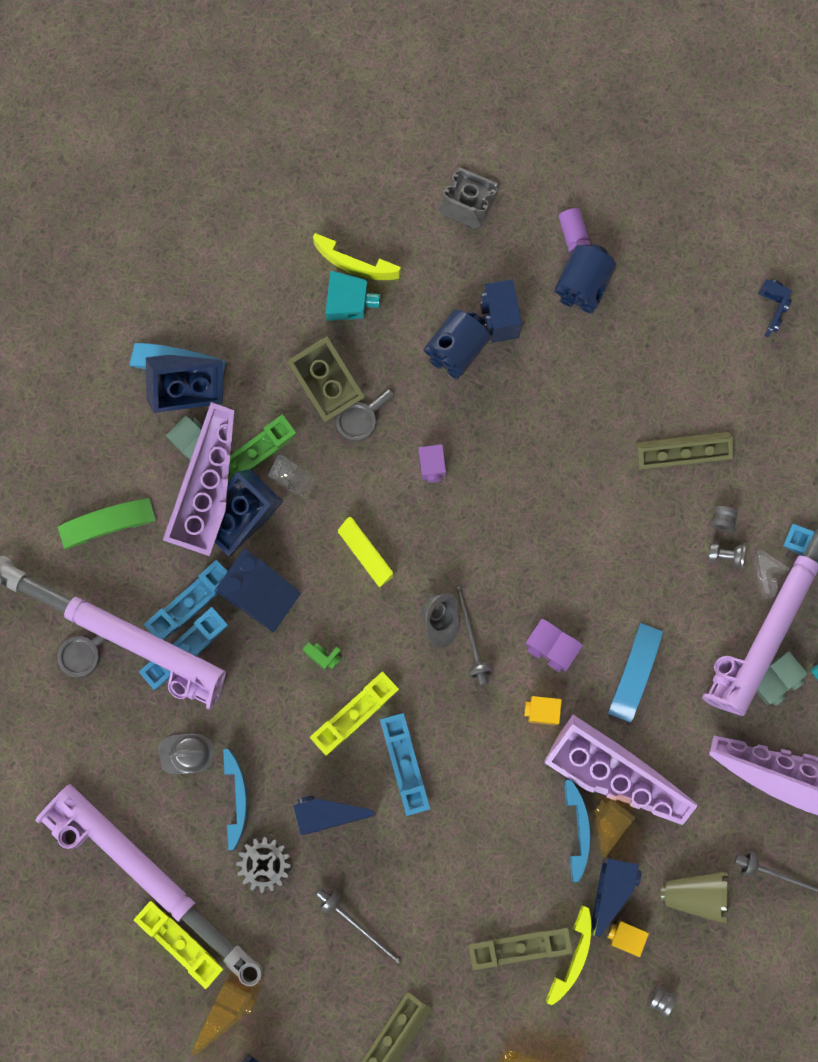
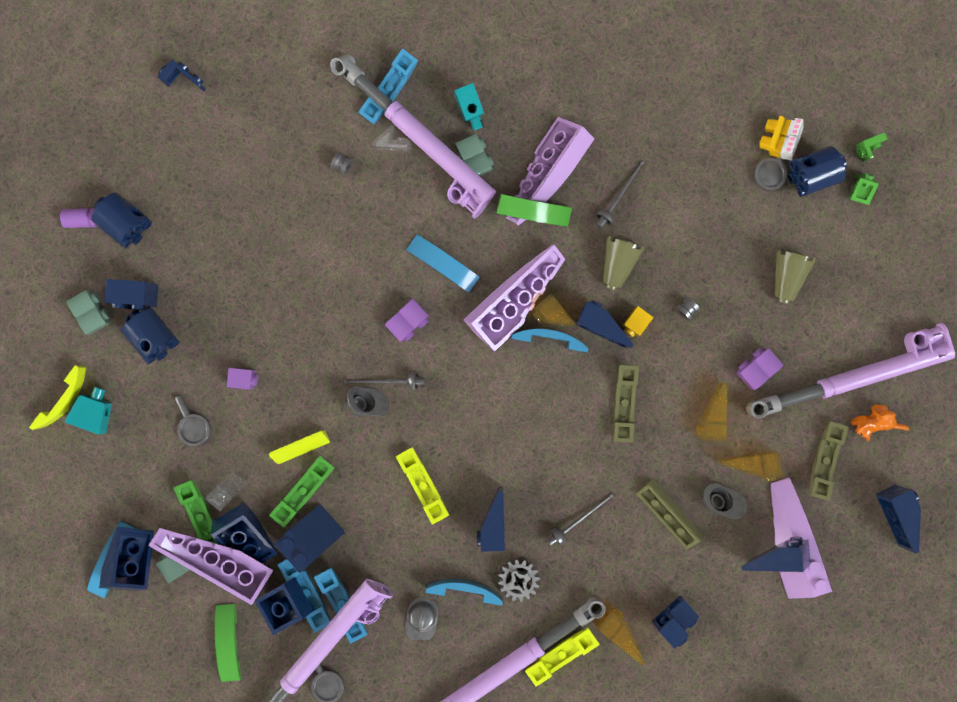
camera: 80 degrees left, 10 degrees up
(169, 579) = (284, 606): none -> dark blue brick
(312, 568) = (302, 491): none -> bright green slope
(318, 654) = (370, 502): bright green bracket -> none
(325, 379) = (152, 447): olive slope -> none
(405, 764) = (469, 455): dark azure slope -> none
(466, 267) = (89, 312): none -> sand green brick
(468, 198) = (31, 296): flat silver slope -> none
(543, 710) = (454, 341): yellow brick -> none
(561, 987) = (659, 380): neon yellow slope -> none
(684, 450) = (280, 179): olive slope -> none
(733, 770) = (534, 210): none -> bright green slope
(737, 555) = (372, 162): flat silver piece -> none

